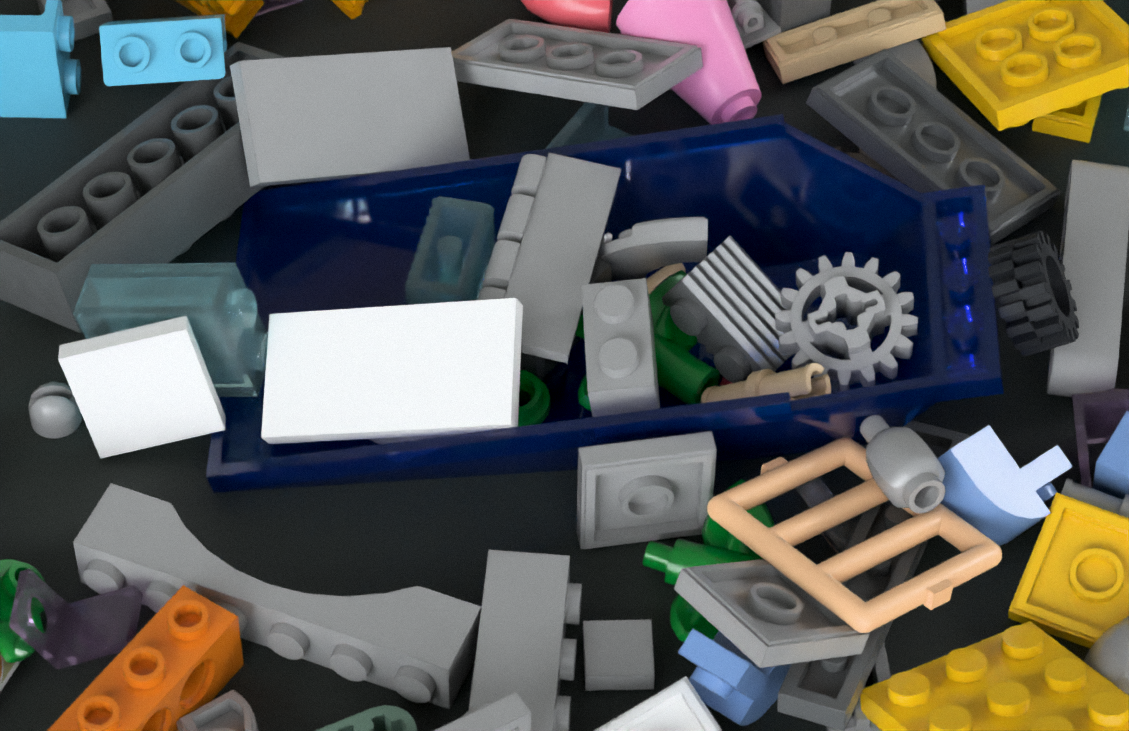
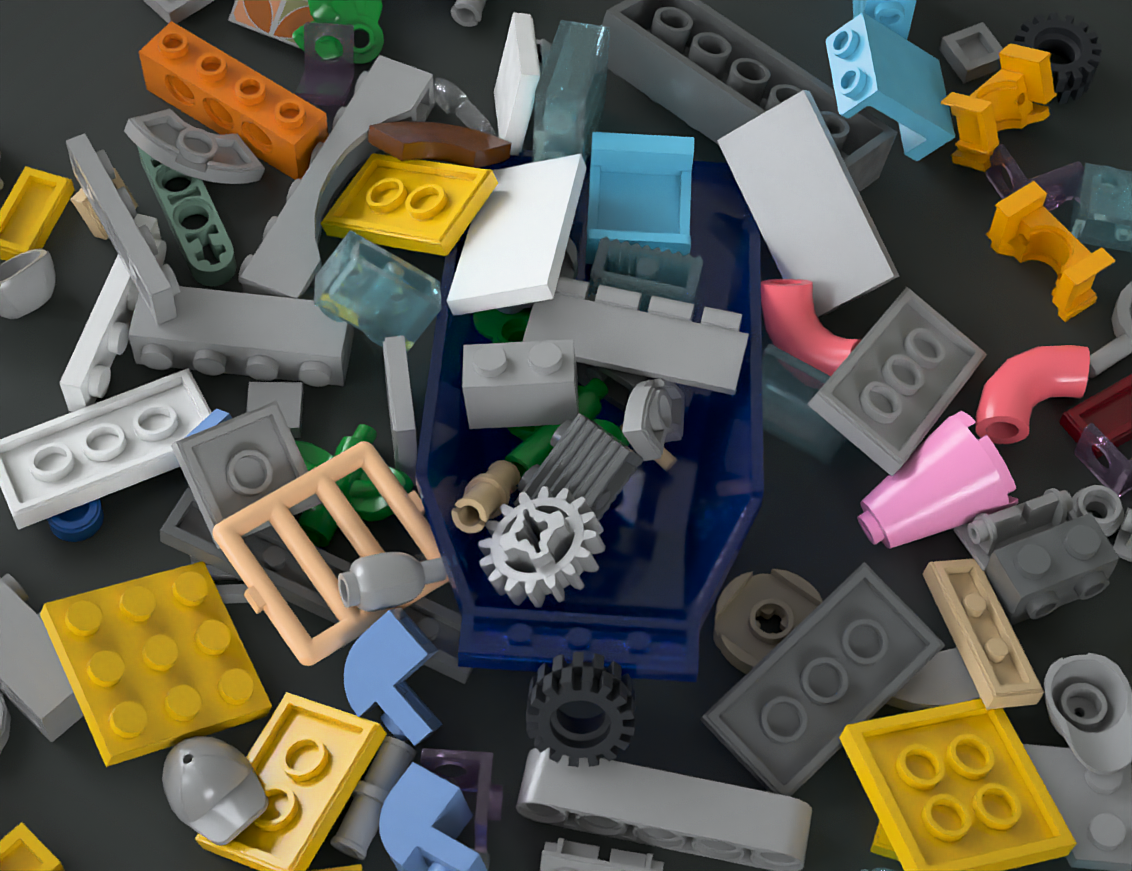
camera: 90 degrees right, 10 degrees up
(142, 477) = (457, 102): none -> clear piece
(219, 477) = (439, 142): none -> reddish brown tile
(317, 275) = (640, 191): none -> medium azure panel
(319, 501) = (410, 203): none -> yellow tile
(496, 498) = (376, 292): none -> clear light blue brick
(528, 127) = (797, 329): none -> coral cylinder

